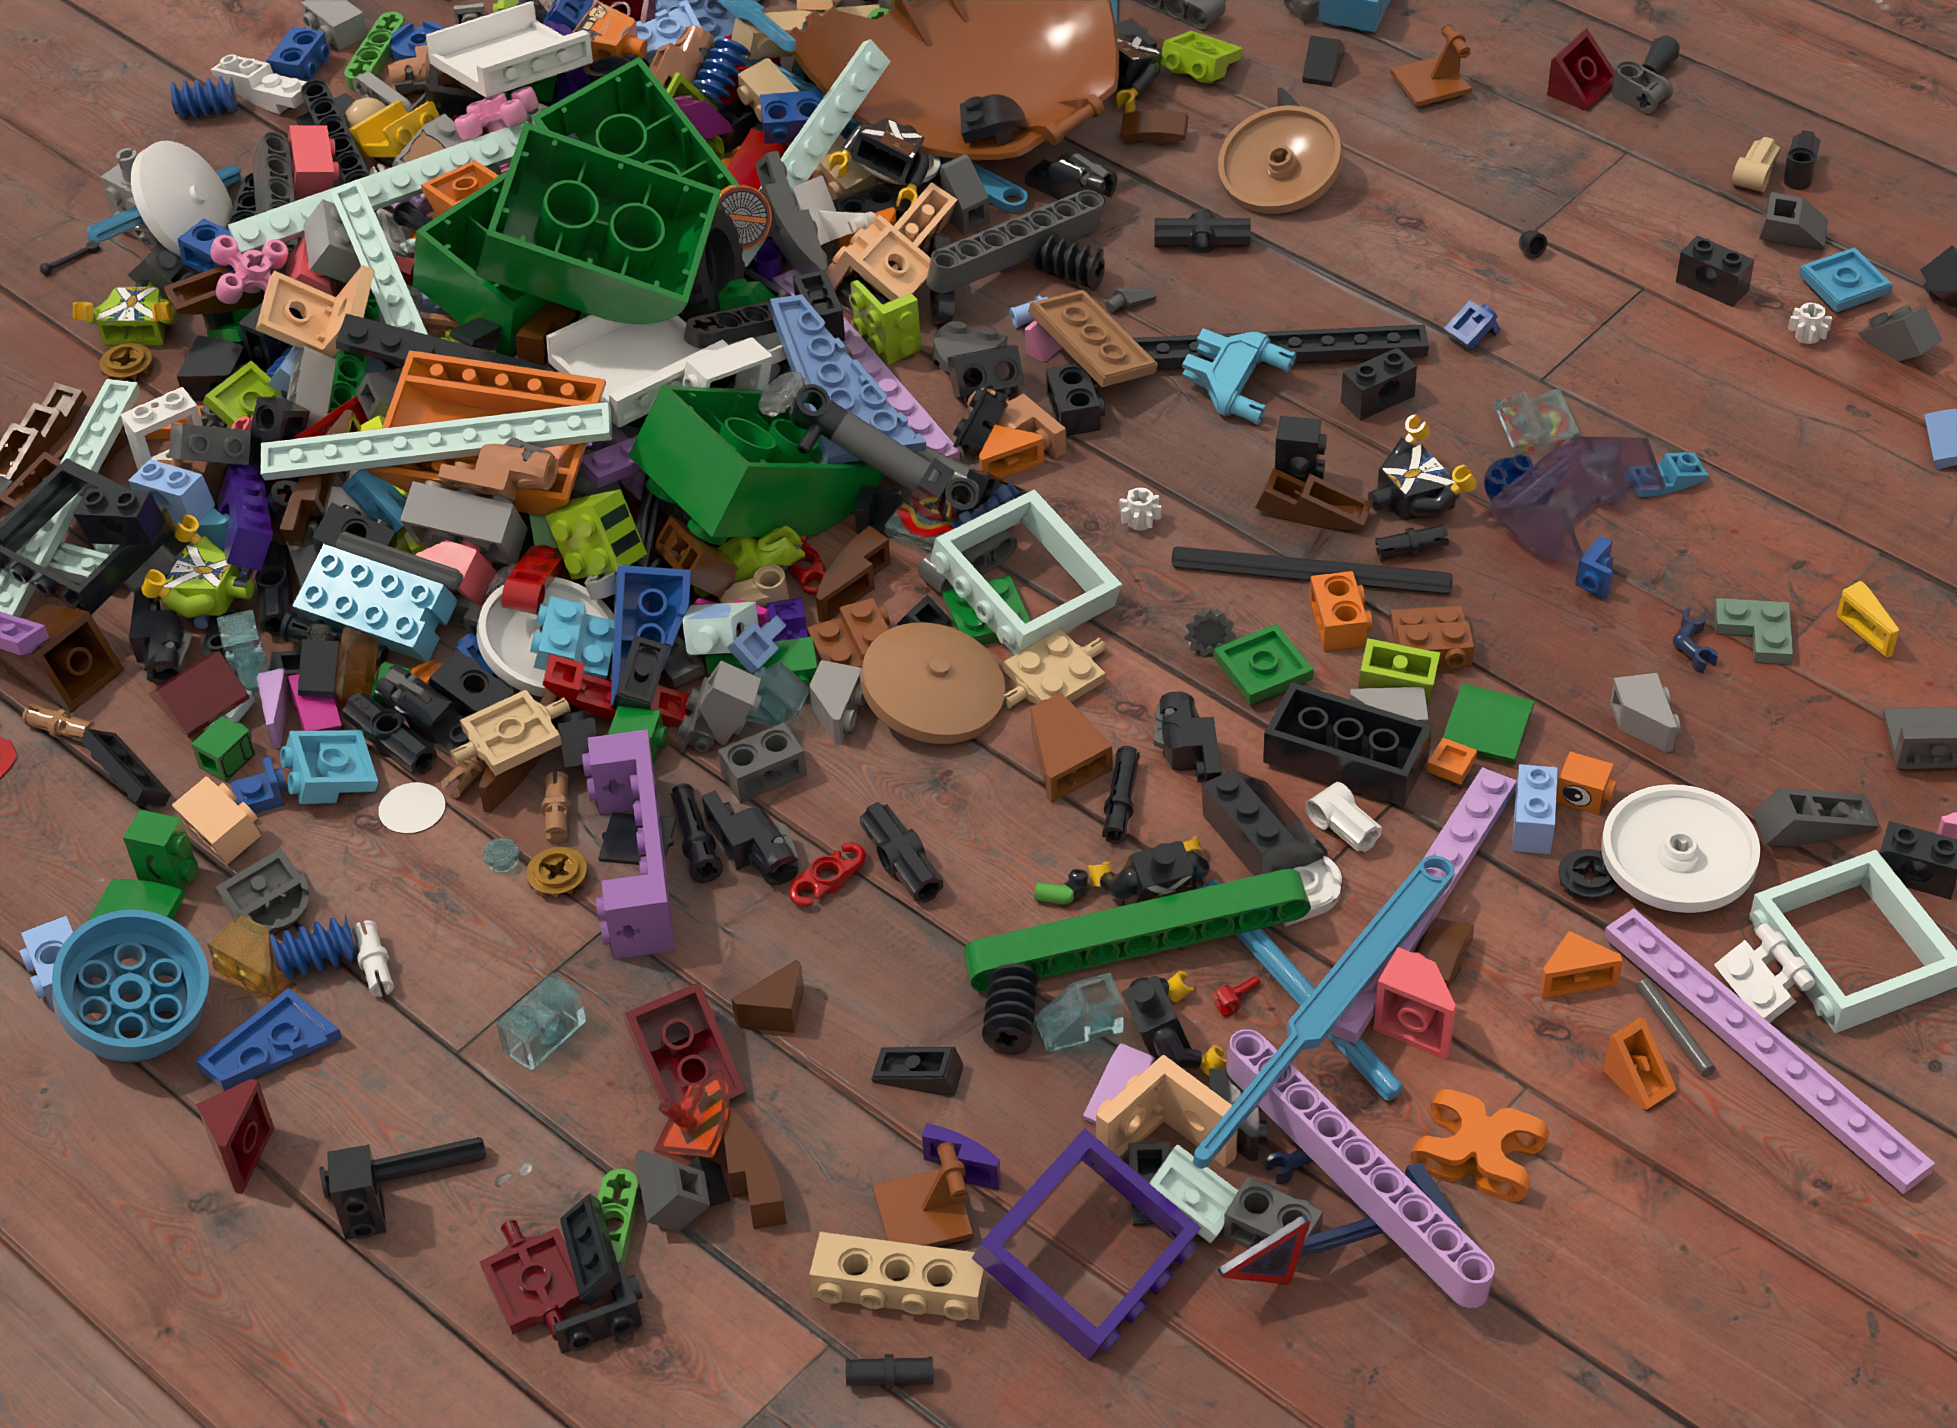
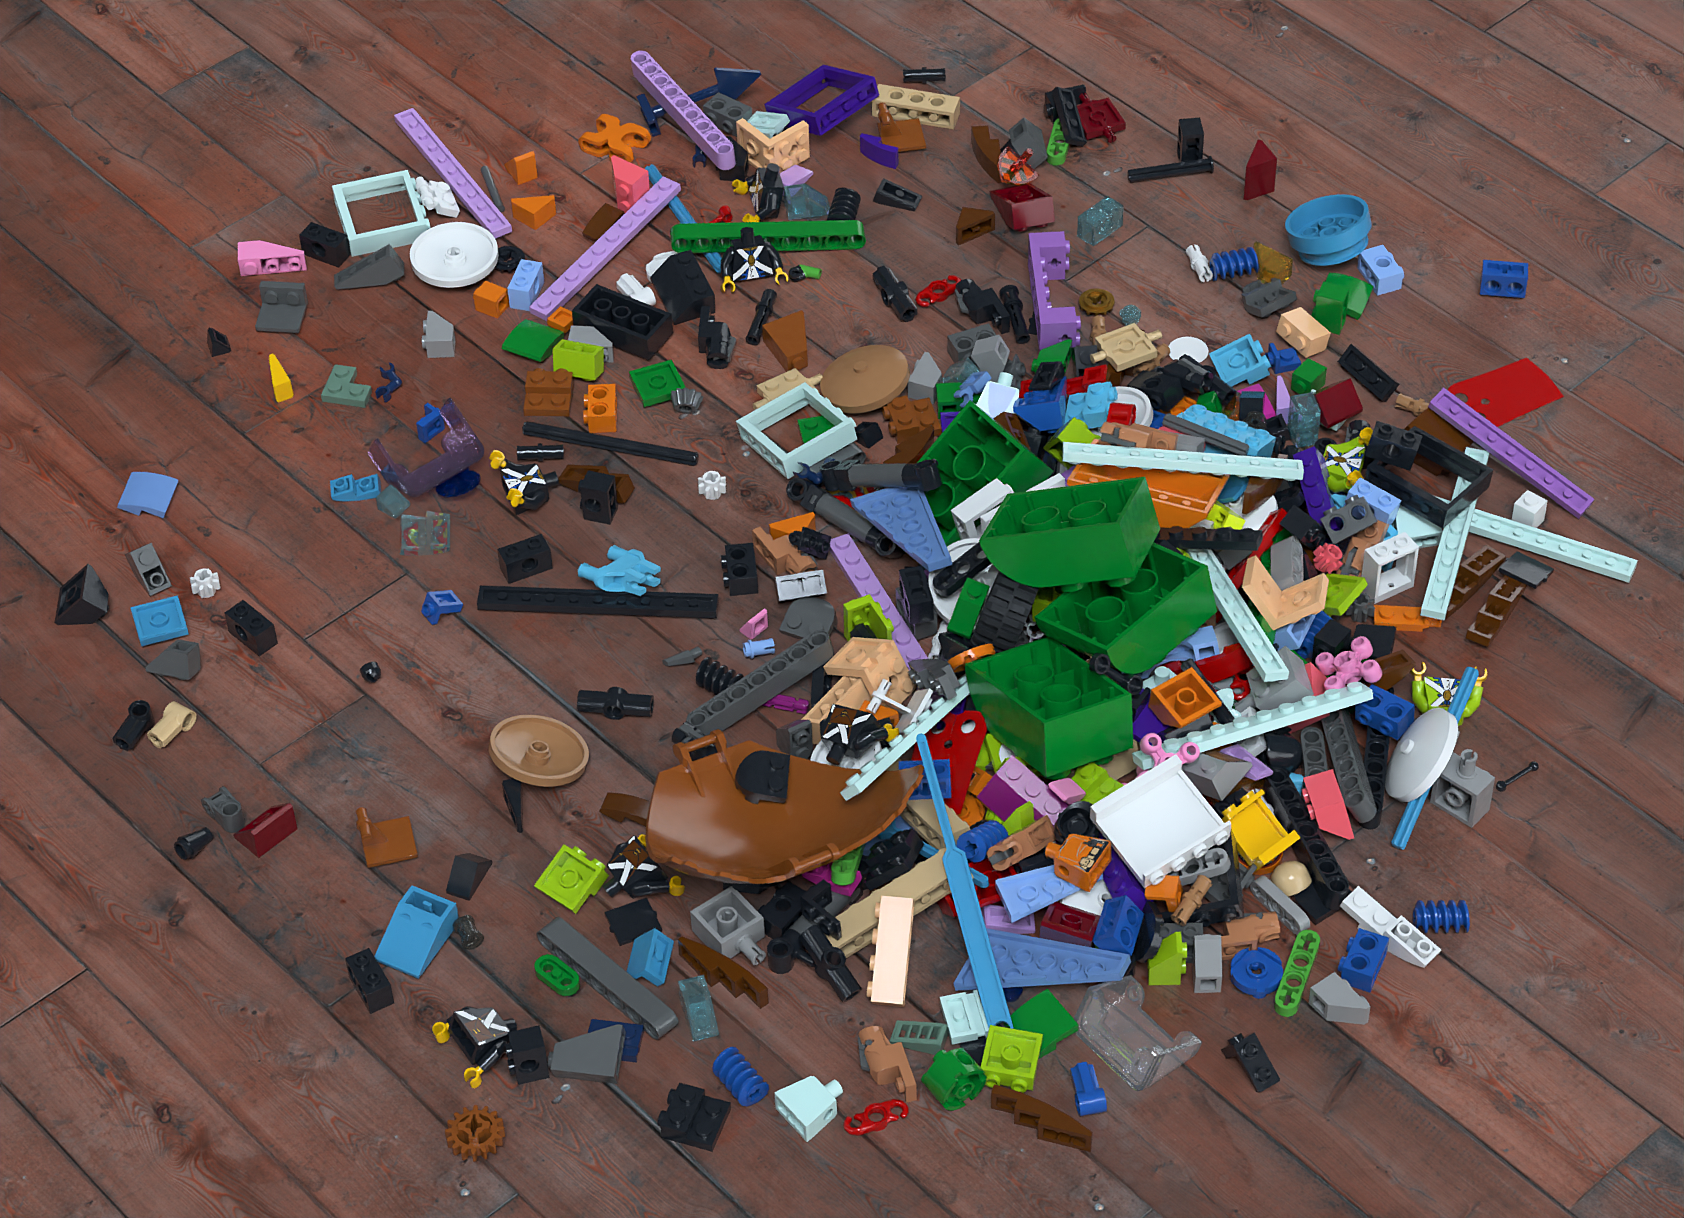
camera: 175 degrees left, 0 degrees up
(114, 361) = (1452, 664): pearl gold gear -> none
(267, 1040) = (1247, 231): blue wing -> none
(781, 393) = (940, 497): clear gear -> none
(1093, 338) = (719, 597): medium nougat tile -> none
(1337, 992) = (665, 176): dark azure piece -> none

